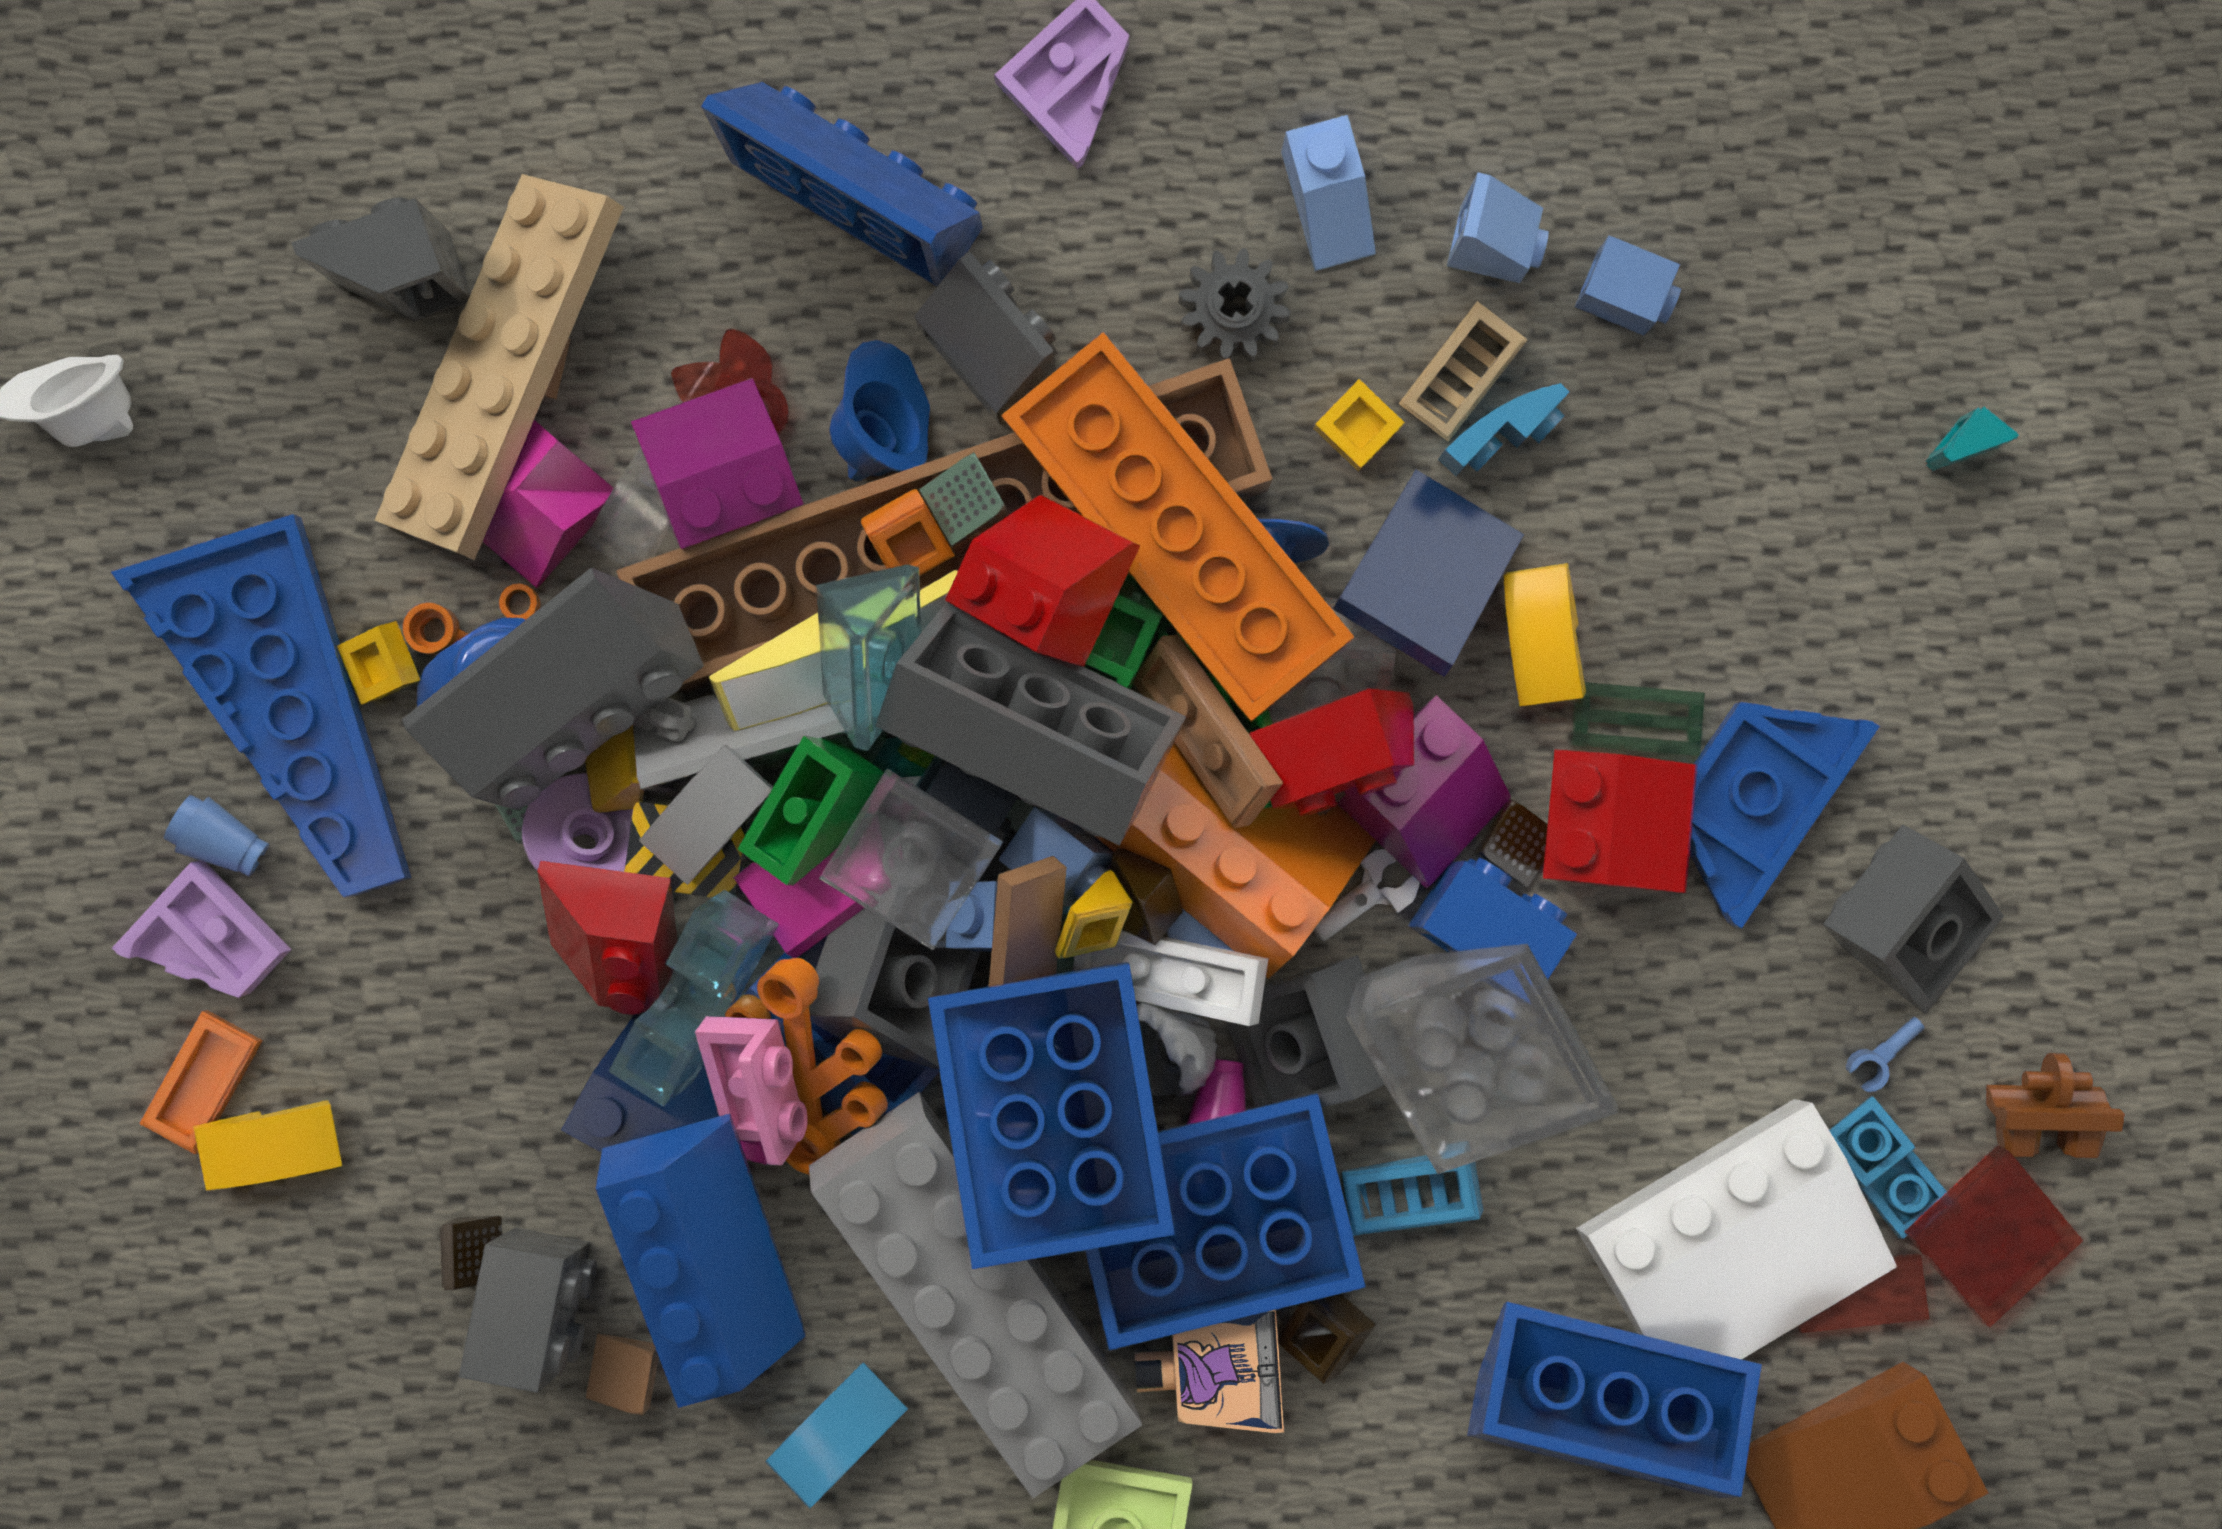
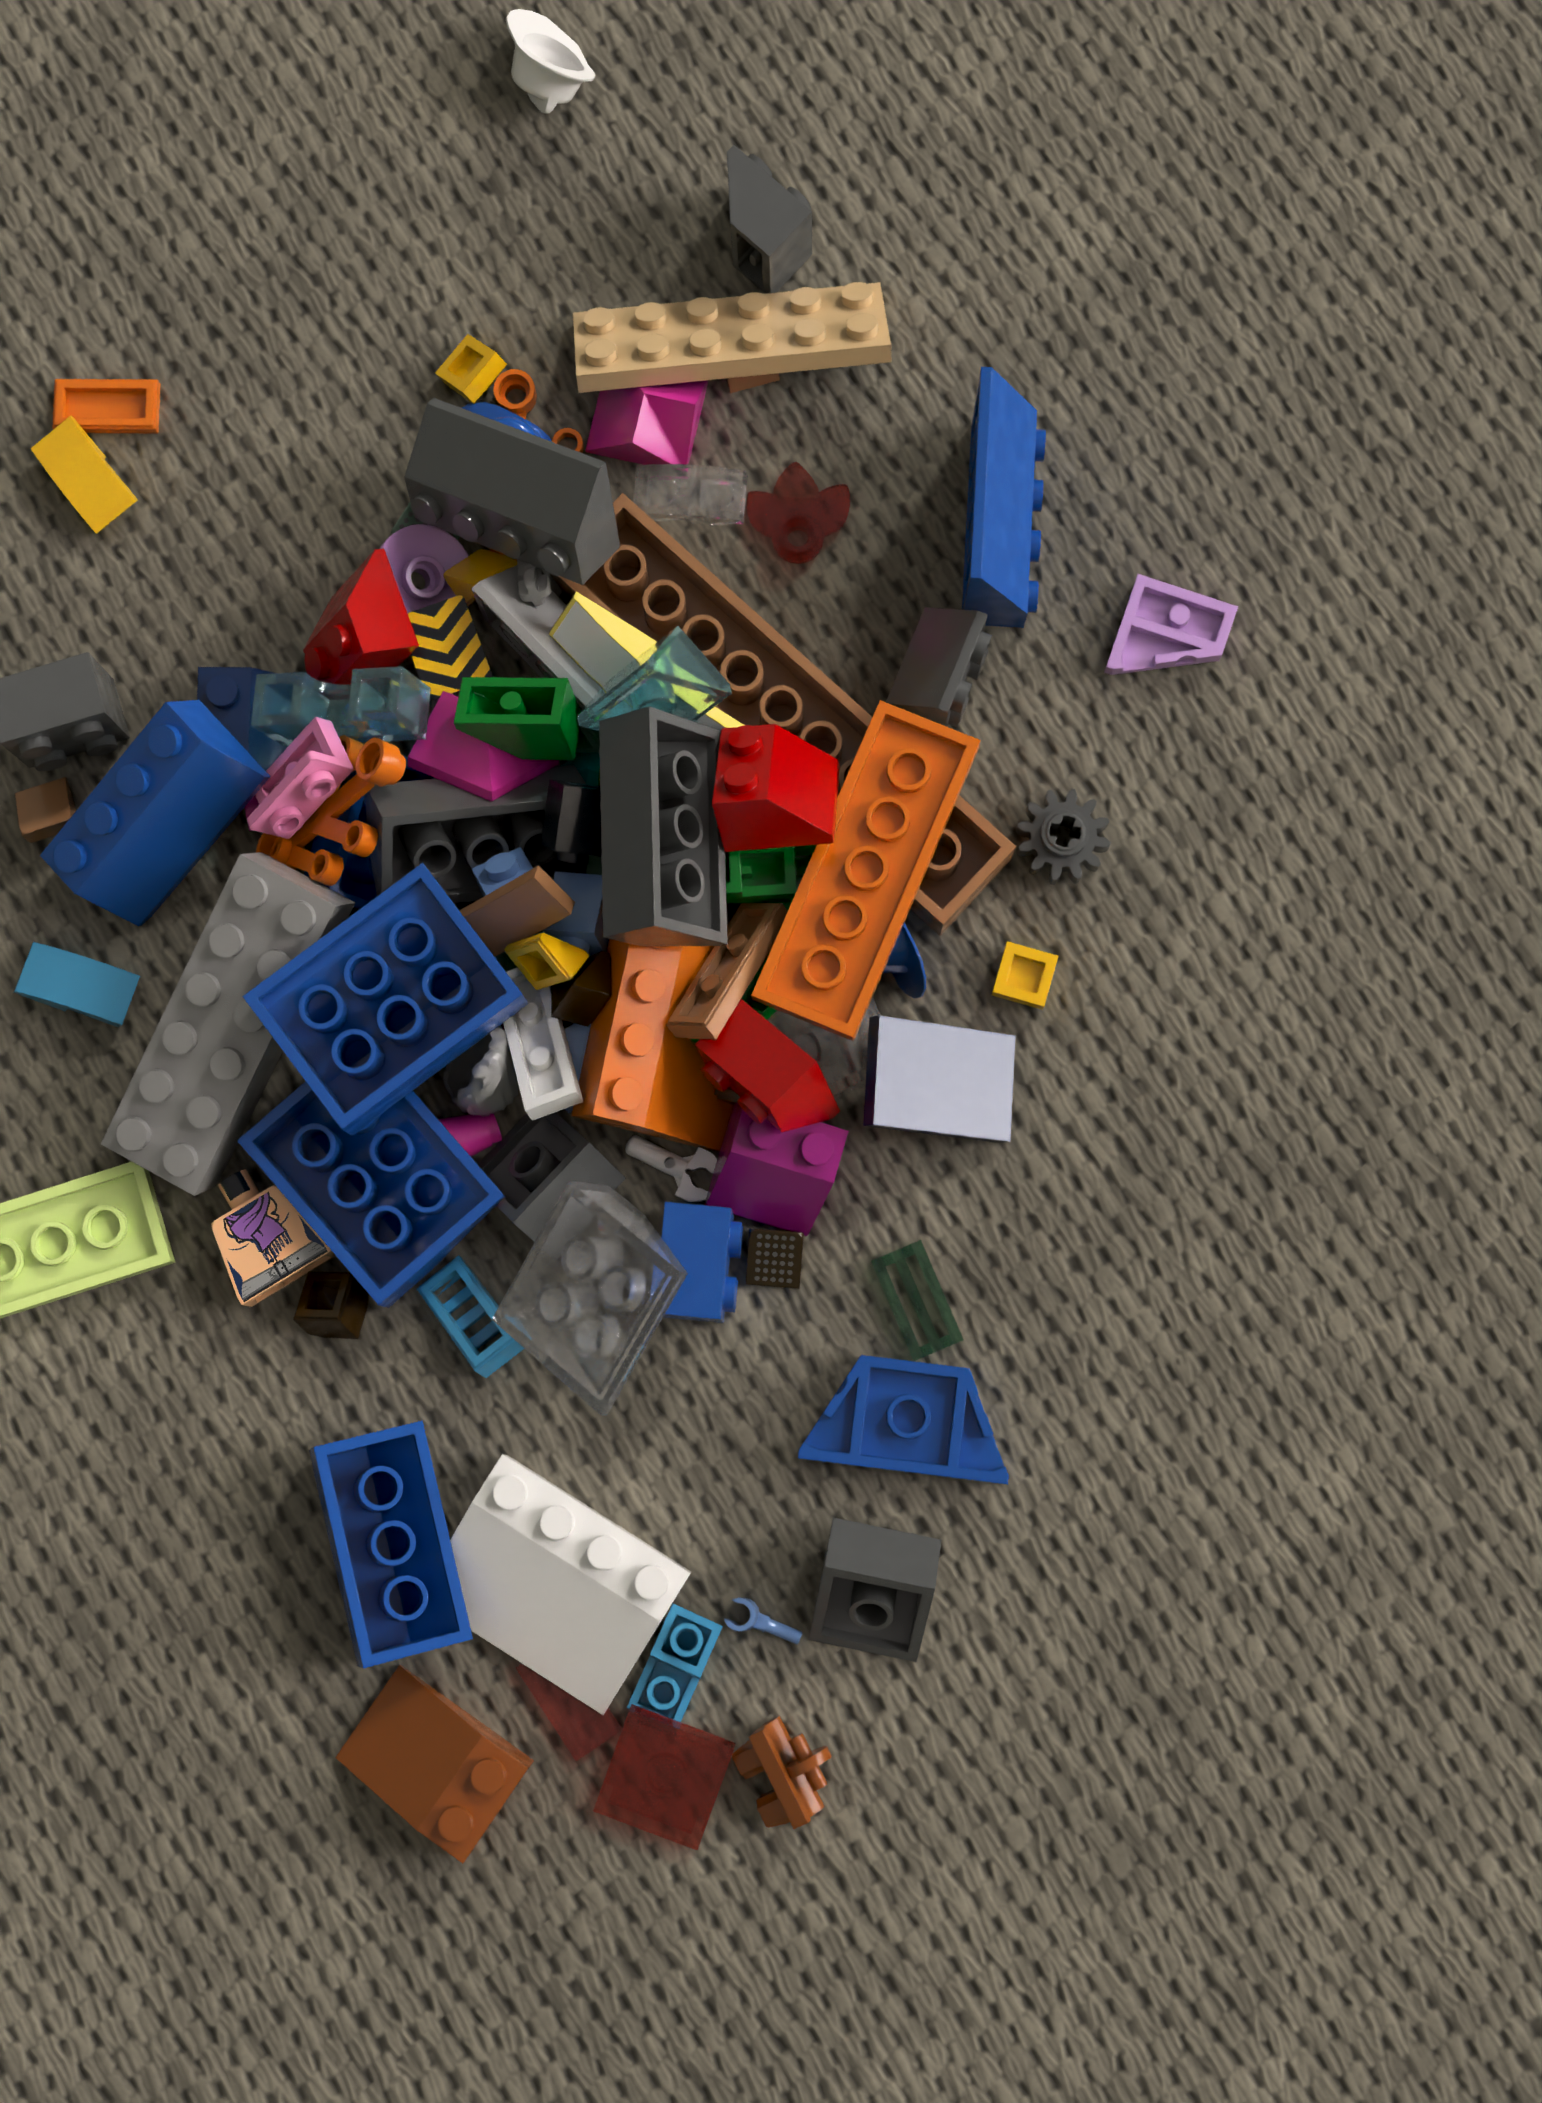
camera: 65 degrees right, 5 degrees down
(205, 934) = (213, 353): lavender wing -> none
(214, 836) = (286, 322): medium blue cone -> none
(267, 664) = (432, 287): blue wing -> none
(463, 1248) = (78, 641): dark brown slope -> none
(706, 814) = (477, 644): light grey slope -> none
(717, 463) = (739, 523): magenta slope -> none
(882, 413) = (844, 623): blue piece -> none
(907, 534) = (757, 682): orange slope -> none
(910, 859) = (517, 800): clear slope -> none
(964, 500) = (805, 708): sand green slope -> none
(1329, 192) = (1186, 861): light blue slope -> none
(1496, 329) = (1155, 1040): tan slope -> none
(1497, 232) = (1224, 998): light blue slope -> none
(1524, 416) = (1096, 1091): dark azure slope -> none
(1543, 635) = (940, 1191): yellow slope -> none
(1620, 821) = (828, 1320): red slope -> none
(1629, 286) = (1239, 1121): medium blue brick -> none
(1970, 436) = (1267, 1441): teal slope -> none

